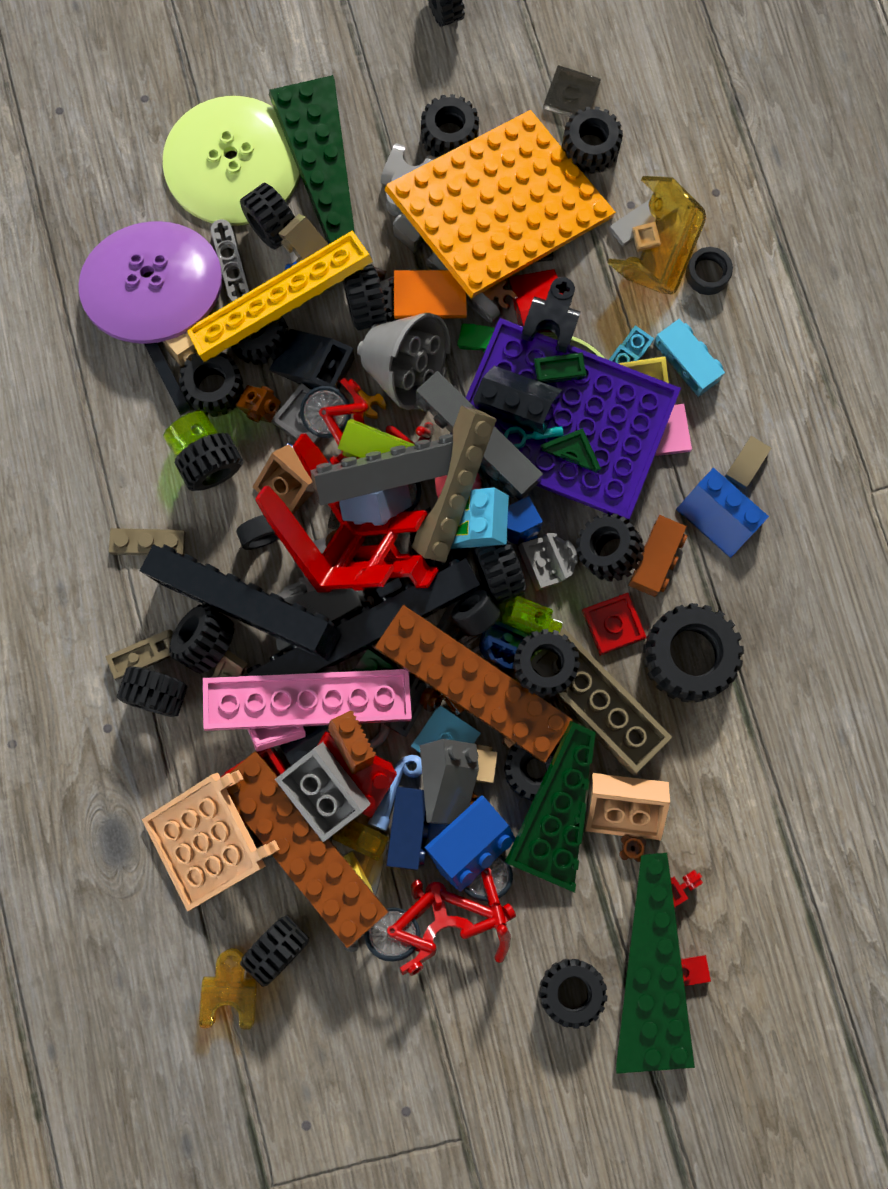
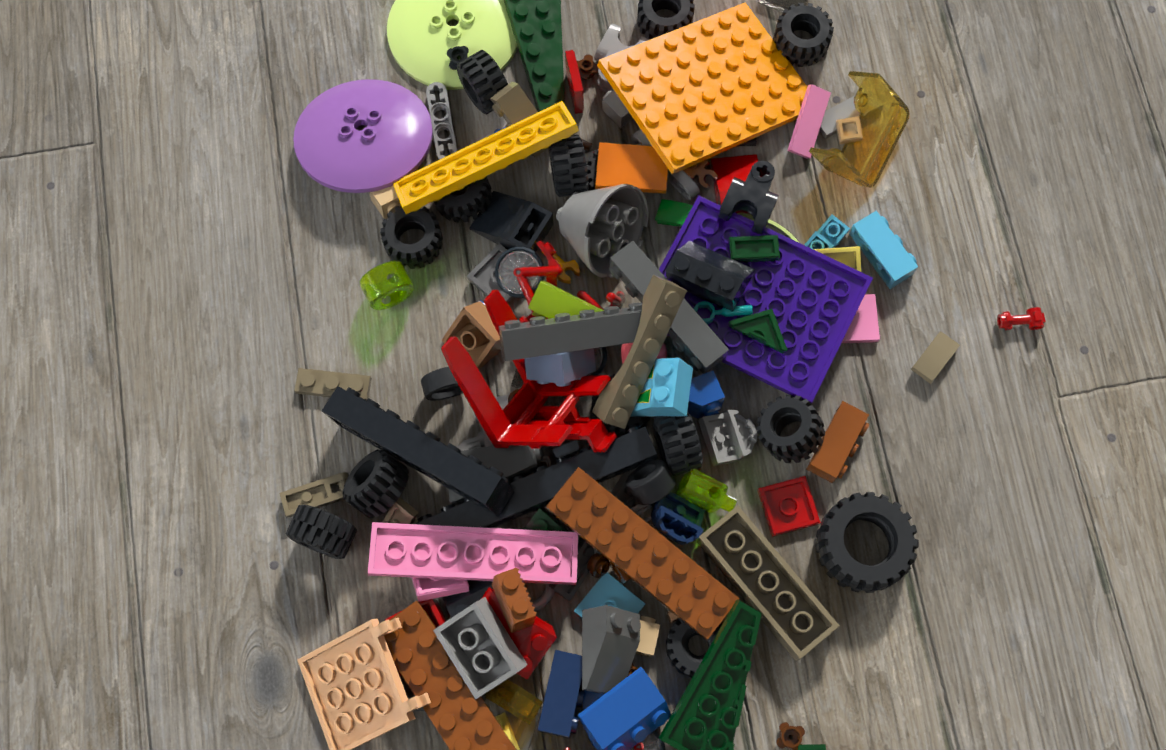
camera: 10 degrees right, 5 degrees down
(168, 378) = (370, 228): black beam -> none
(208, 461) = (400, 311): black tyre -> none
(235, 187) = (454, 52): none -> black plate
(258, 403) = (455, 259): reddish brown brick -> none
(362, 208) = (574, 81): none -> red tile
(371, 197) = (587, 73): none -> reddish brown plate
(380, 819) = (537, 679): light blue plant -> none
(546, 641) = (732, 523): black tyre -> none
(605, 230) = (809, 121): none -> bright pink tile
(627, 806) = (788, 693): light nougat slope -> none
(713, 254) = (911, 151): black tyre -> none
(722, 512) = (906, 404): blue slope -> none
(842, 414) = (1034, 319): none -> red bar

